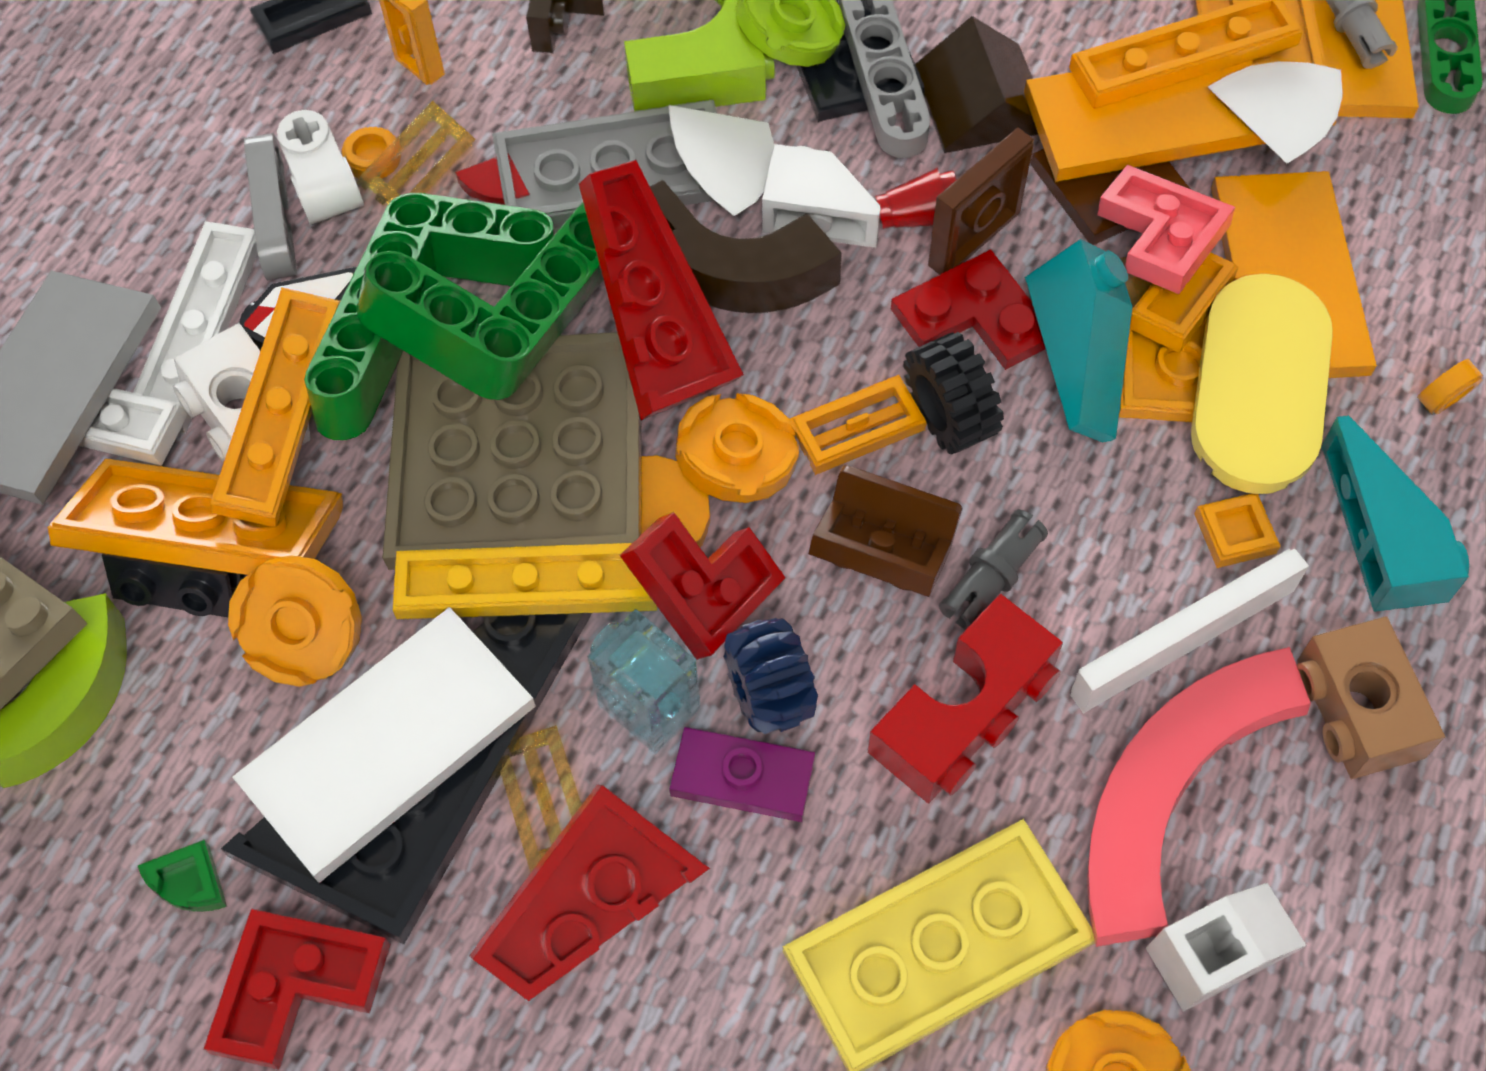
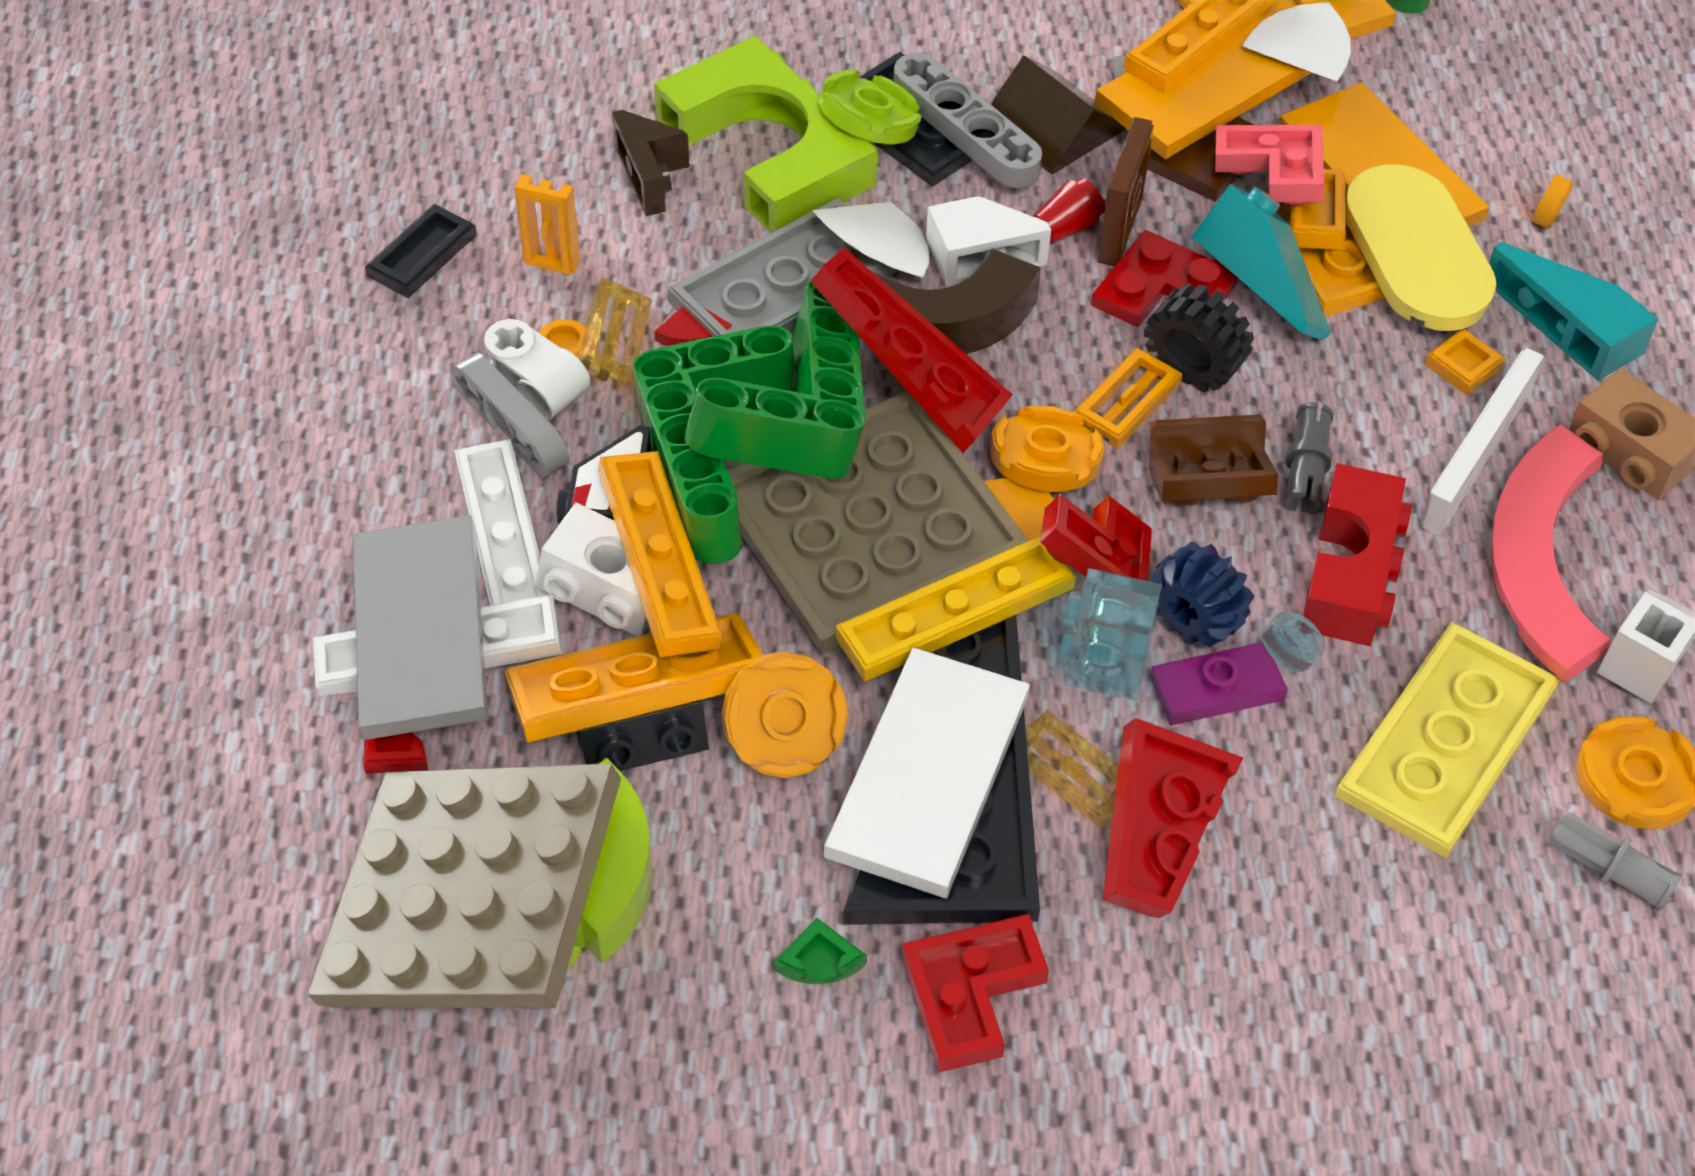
camera: 30 degrees left, 10 degrees down
(843, 765) = (1293, 641): none -> clear light blue tile

